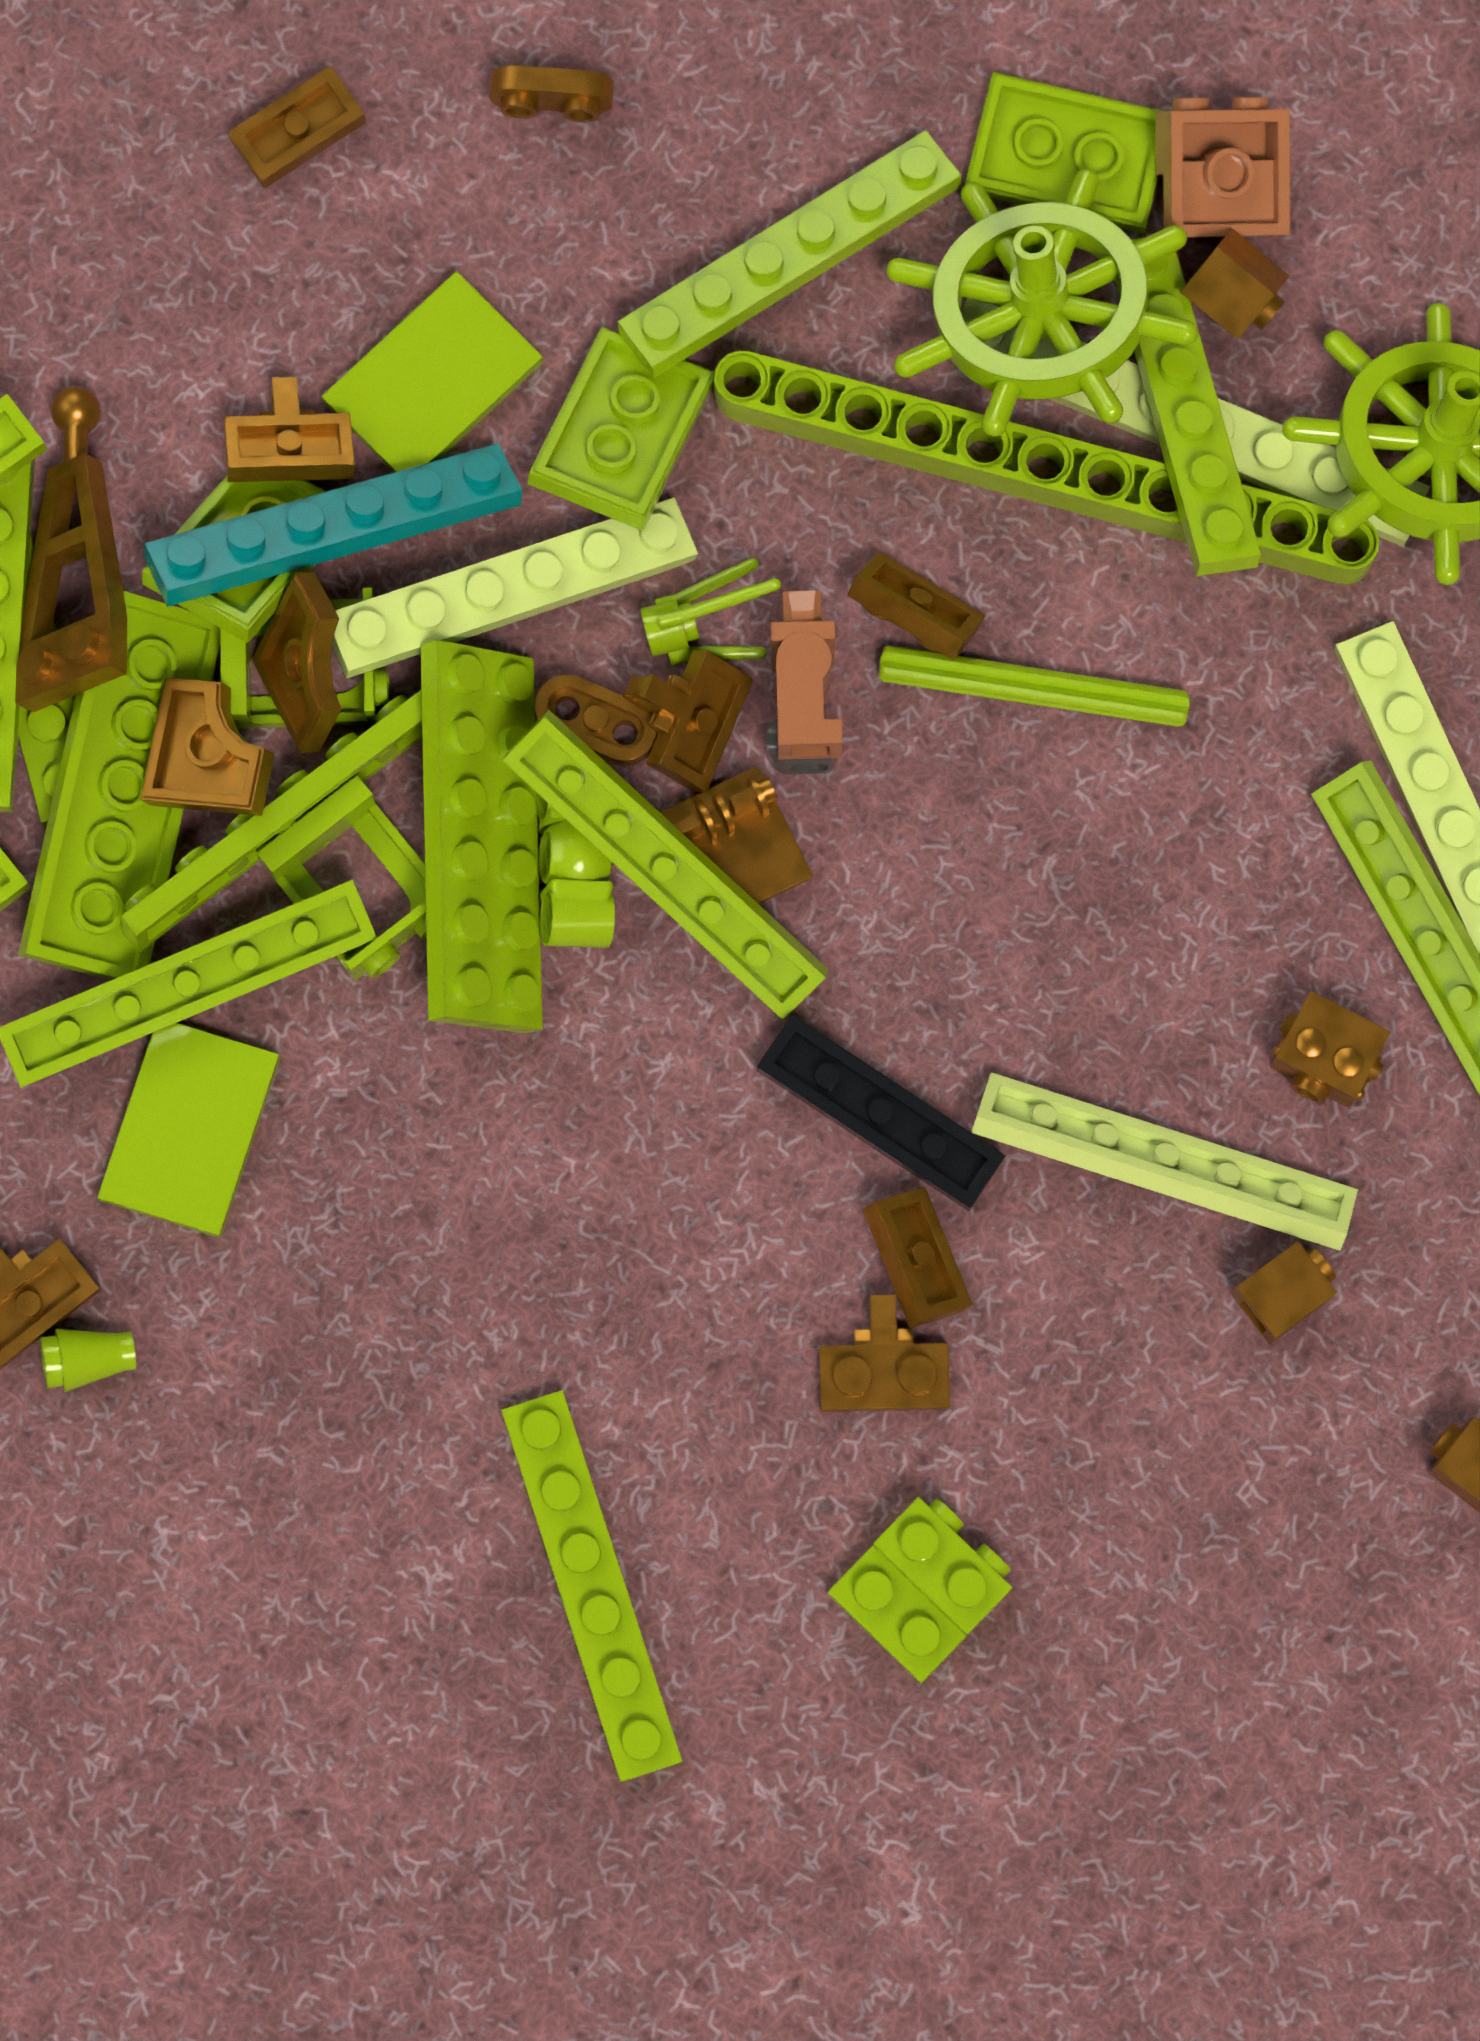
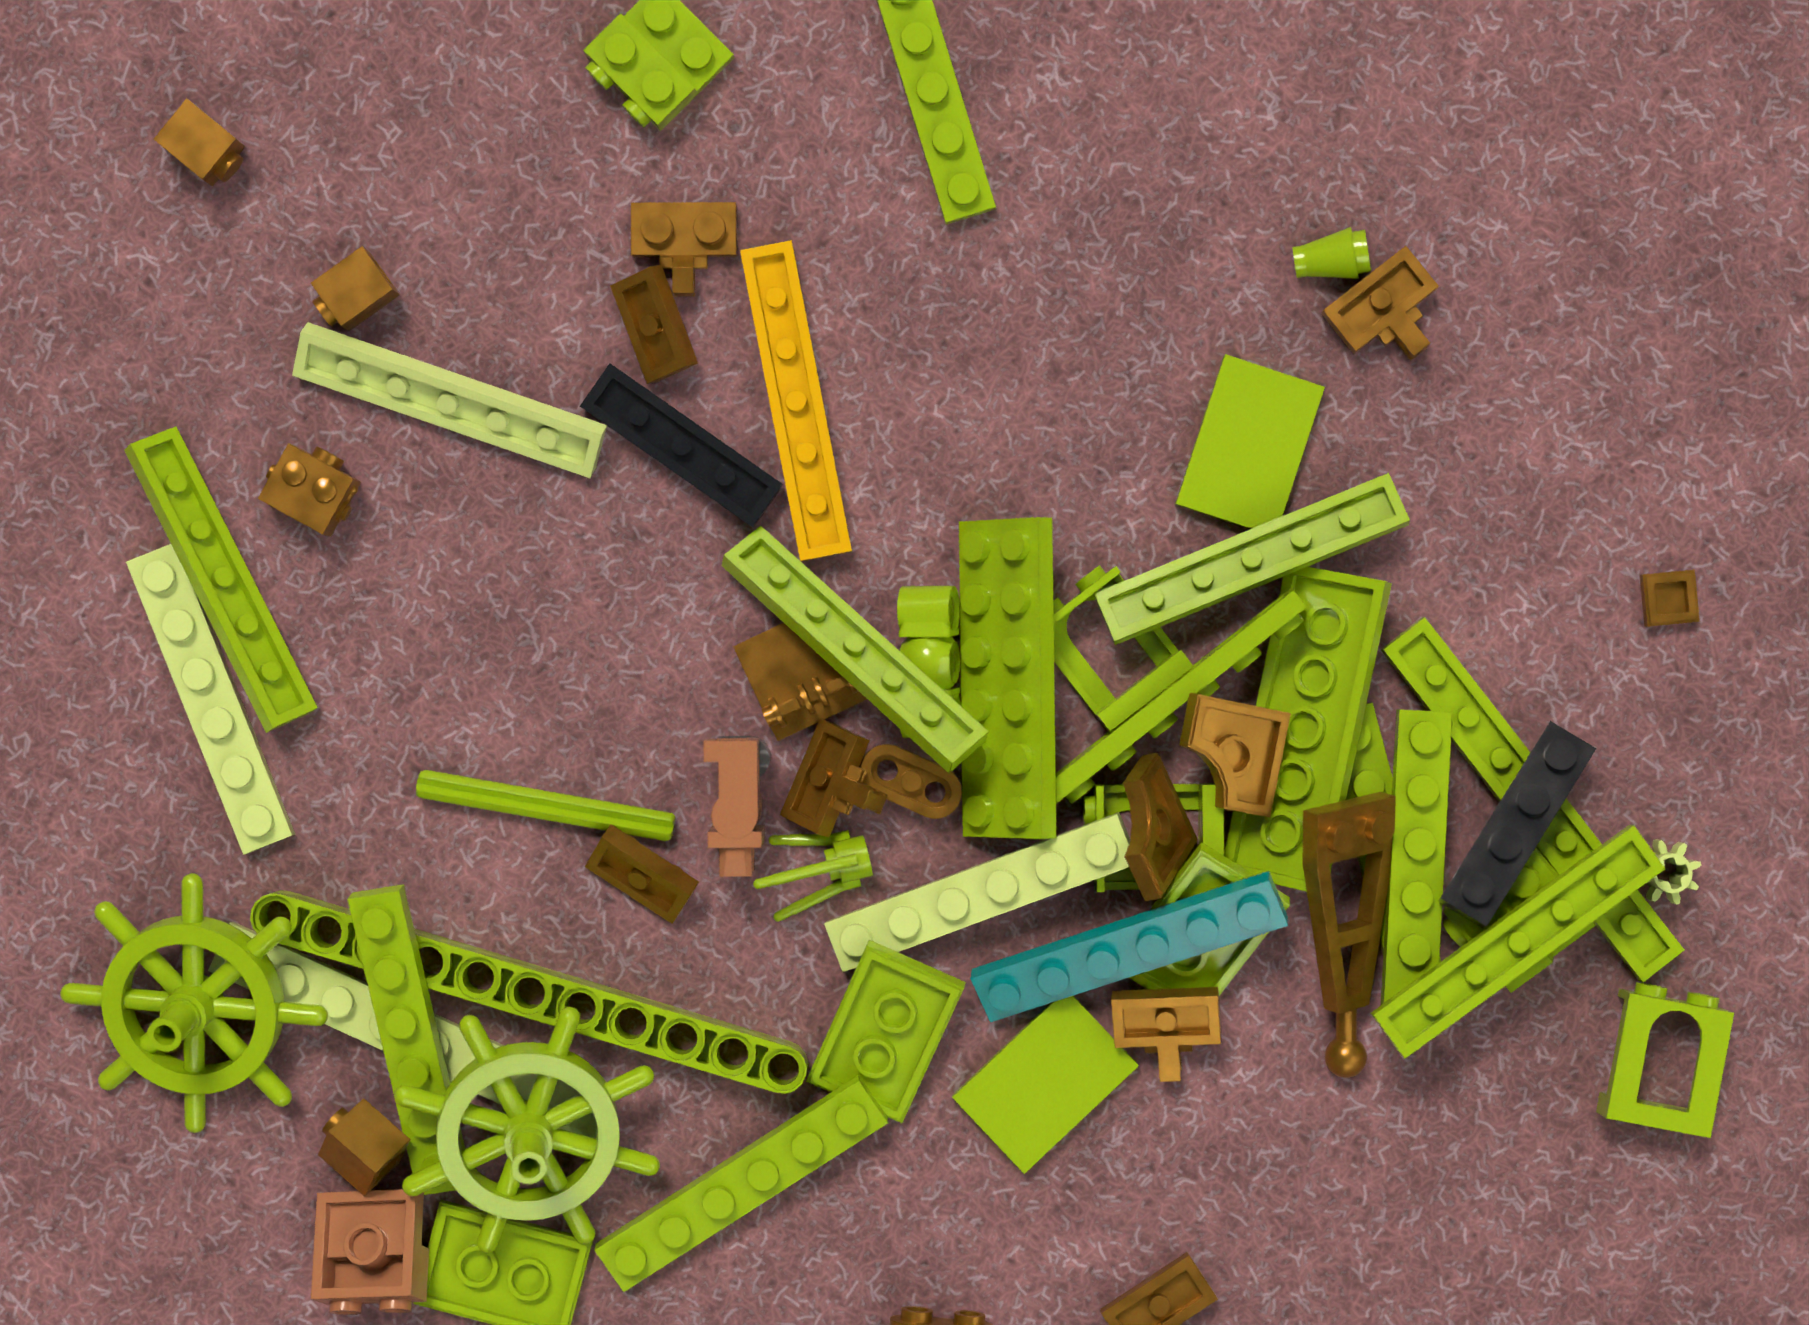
camera: 175 degrees right, 10 degrees up
(742, 1170) = (796, 400): none -> yellow plate

